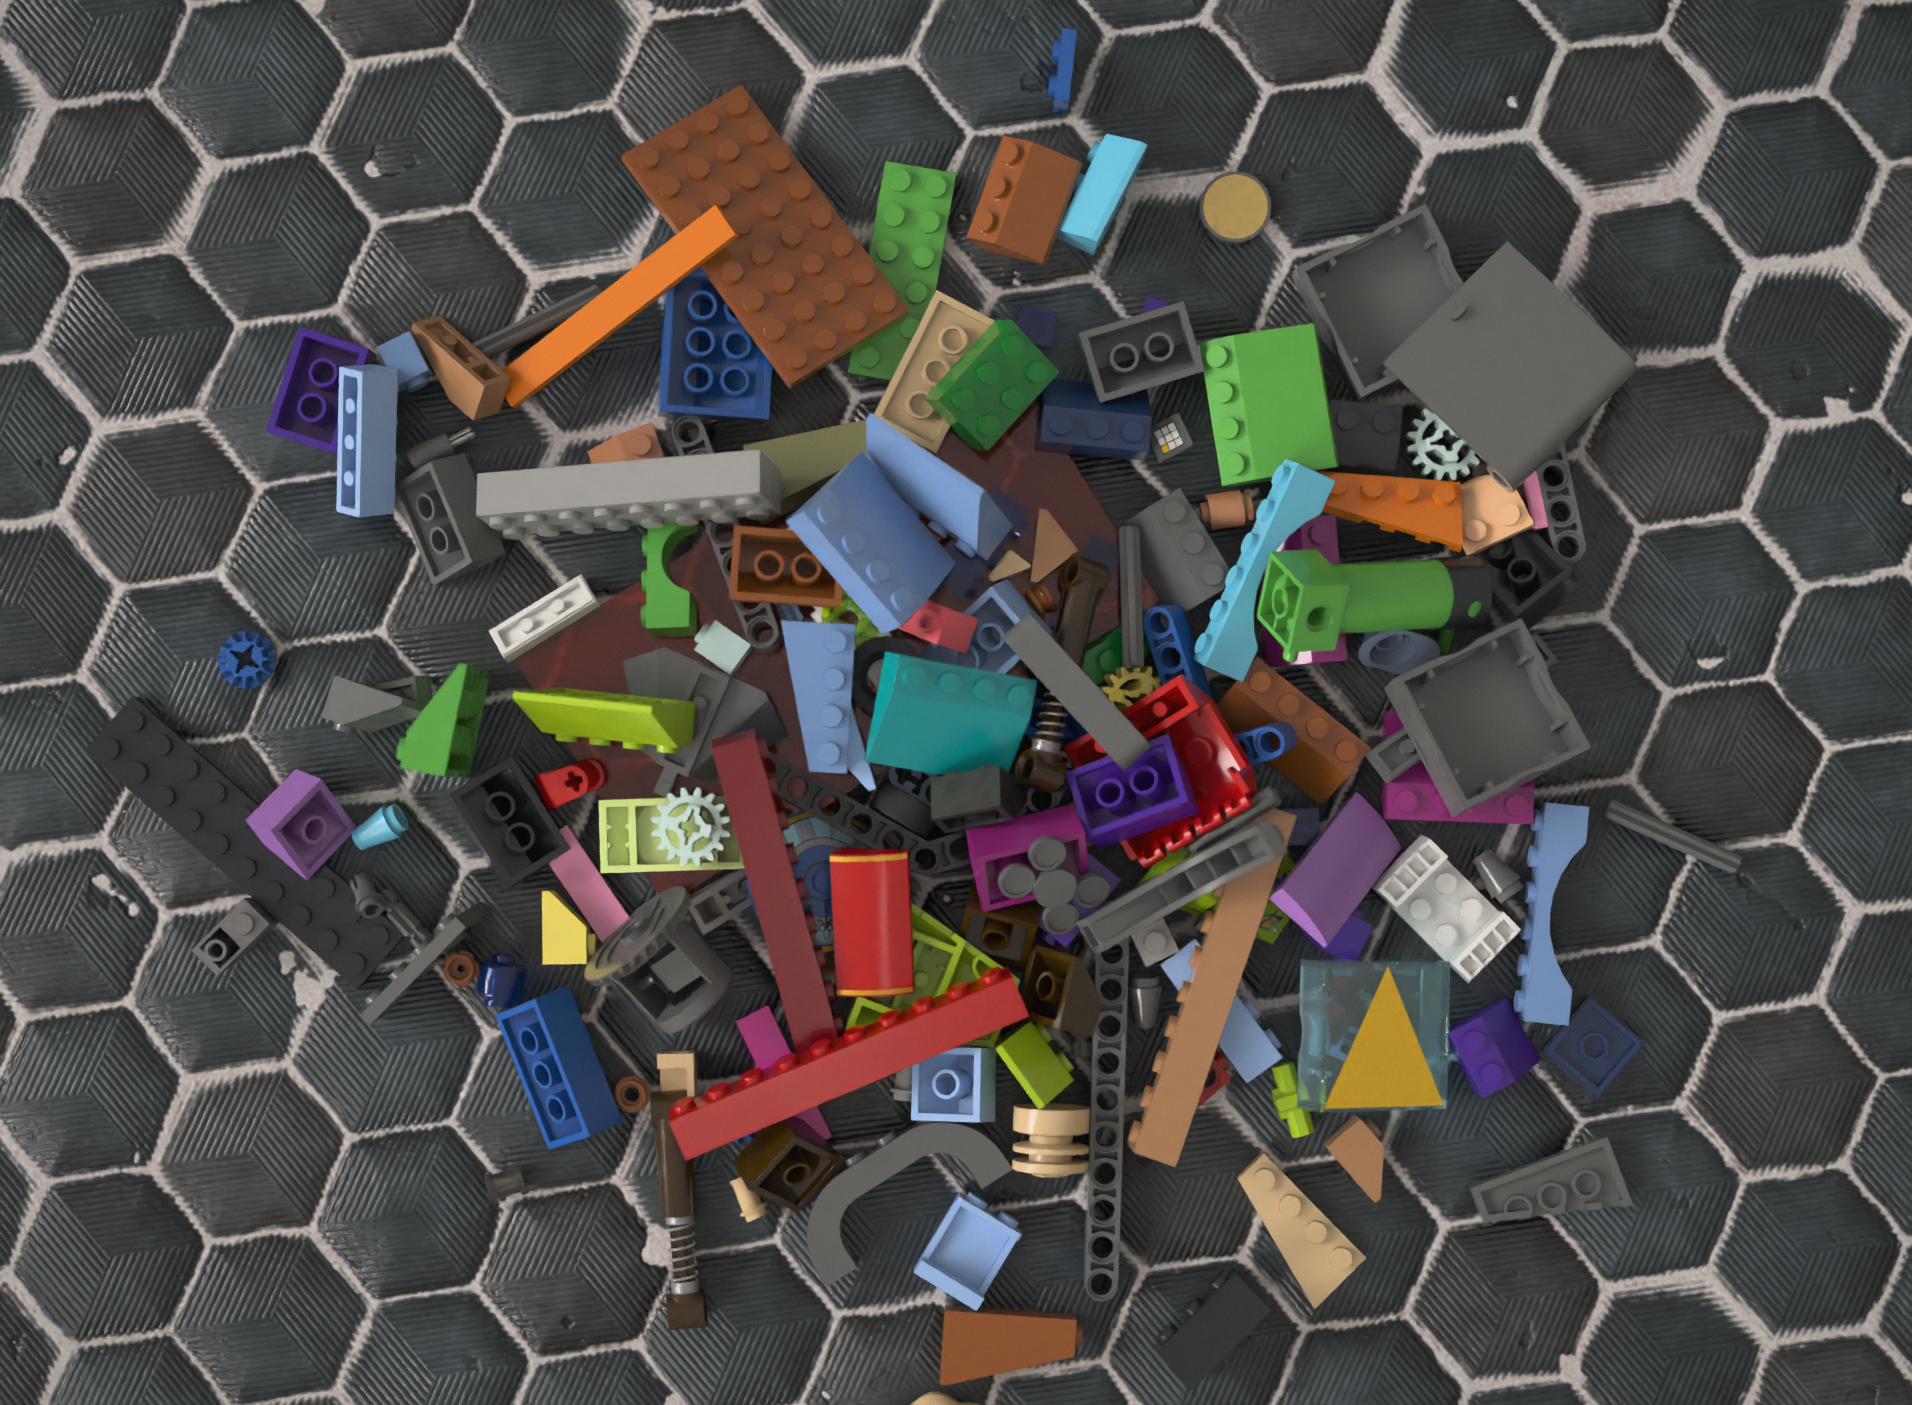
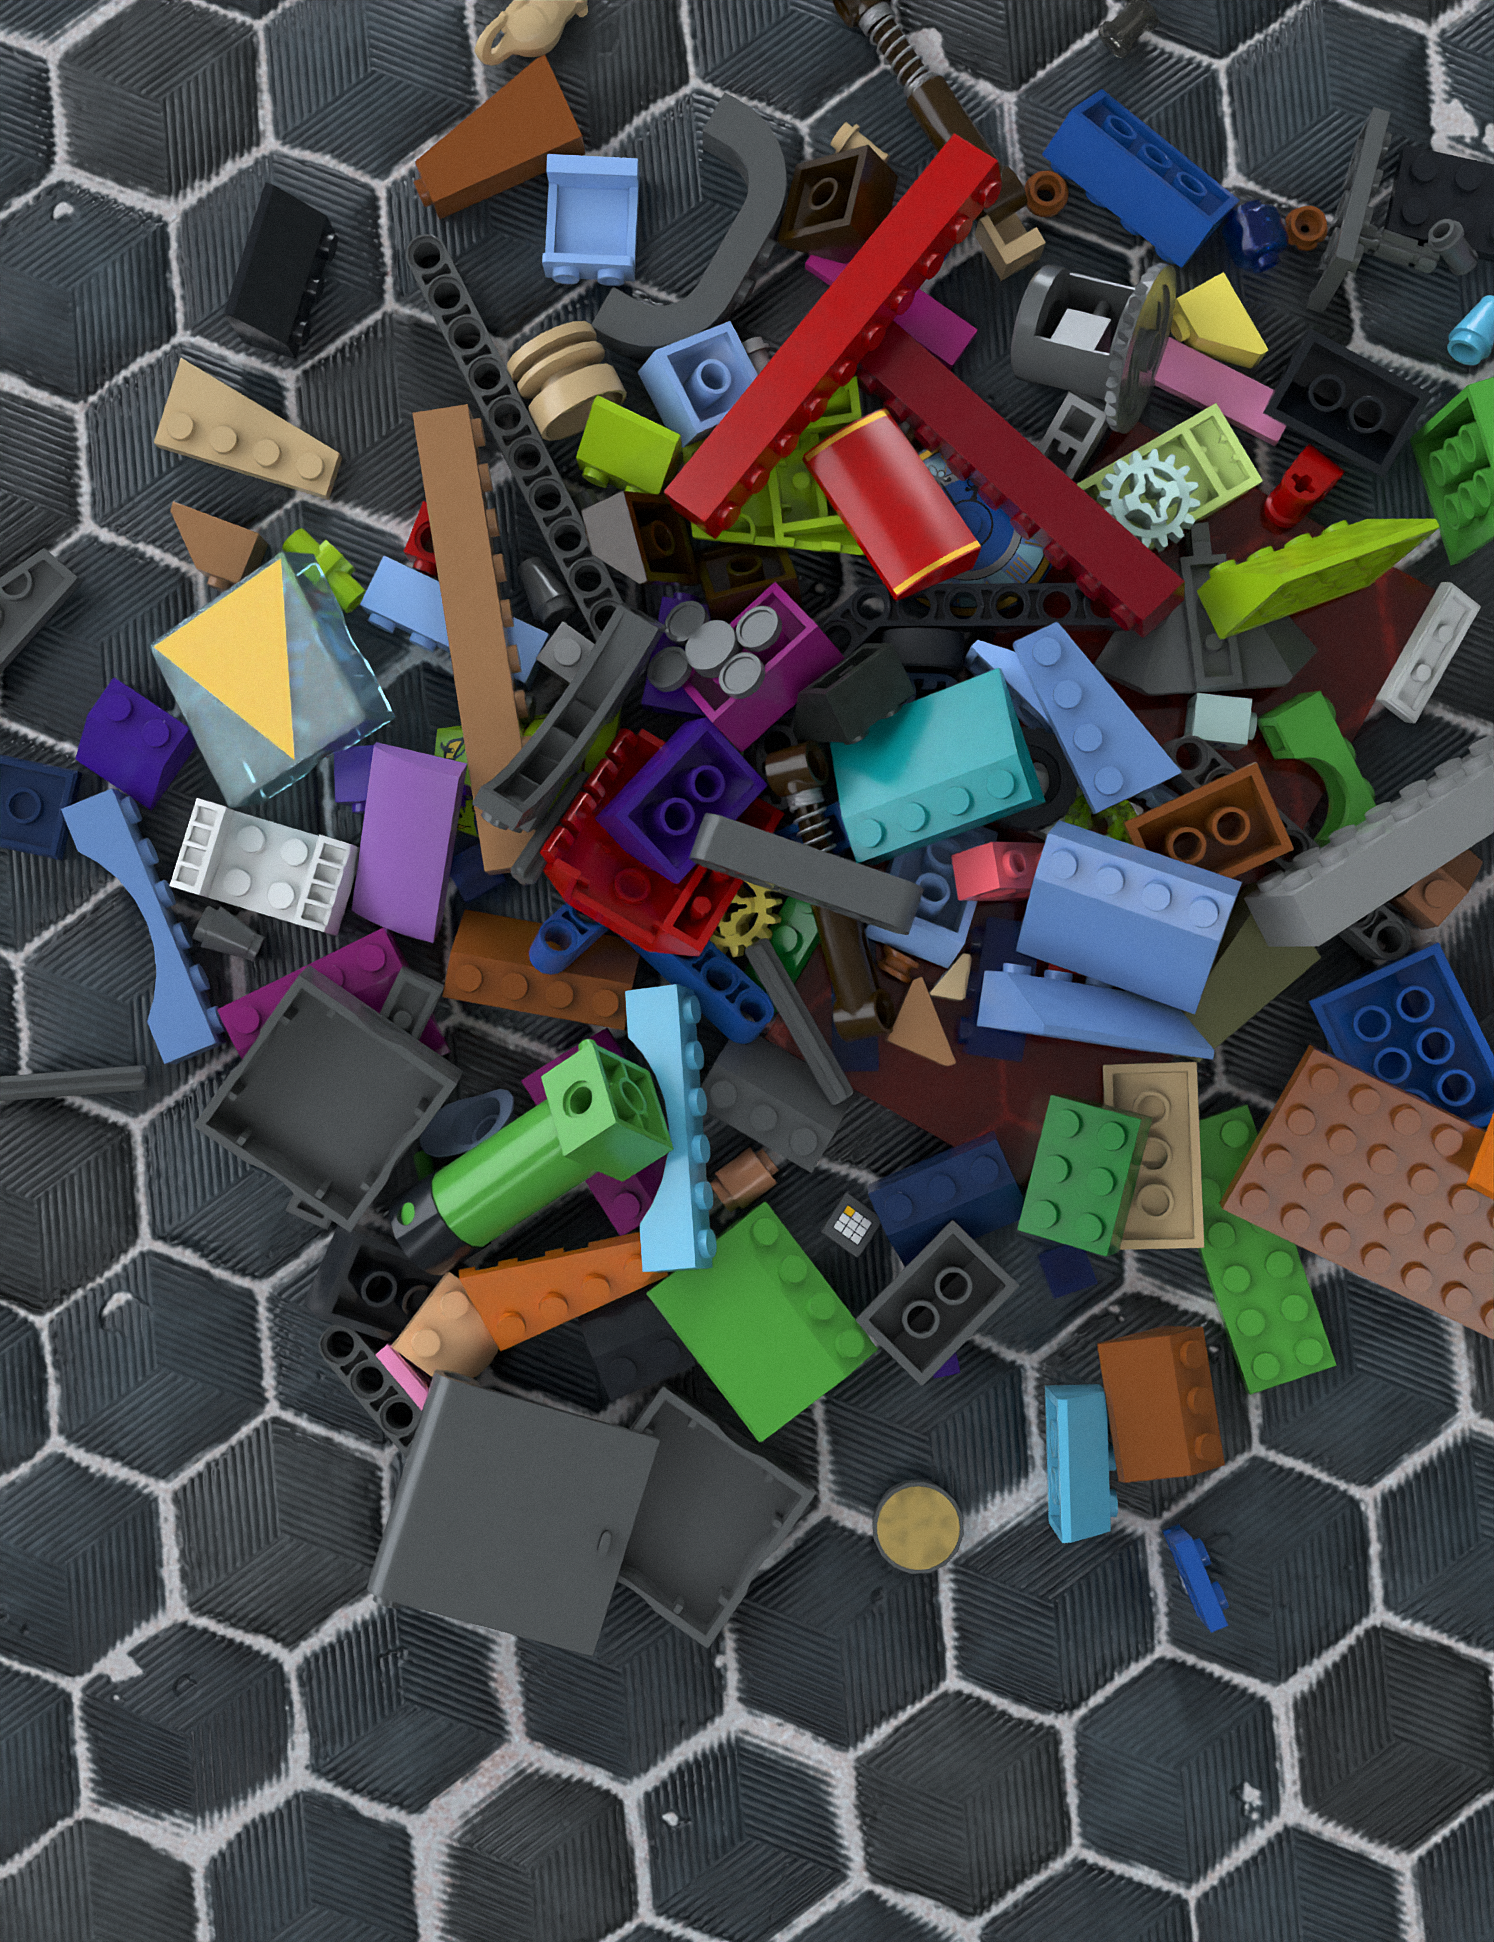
camera: 150 degrees right, 0 degrees up
(1447, 459) = (528, 1370): light aqua gear -> none

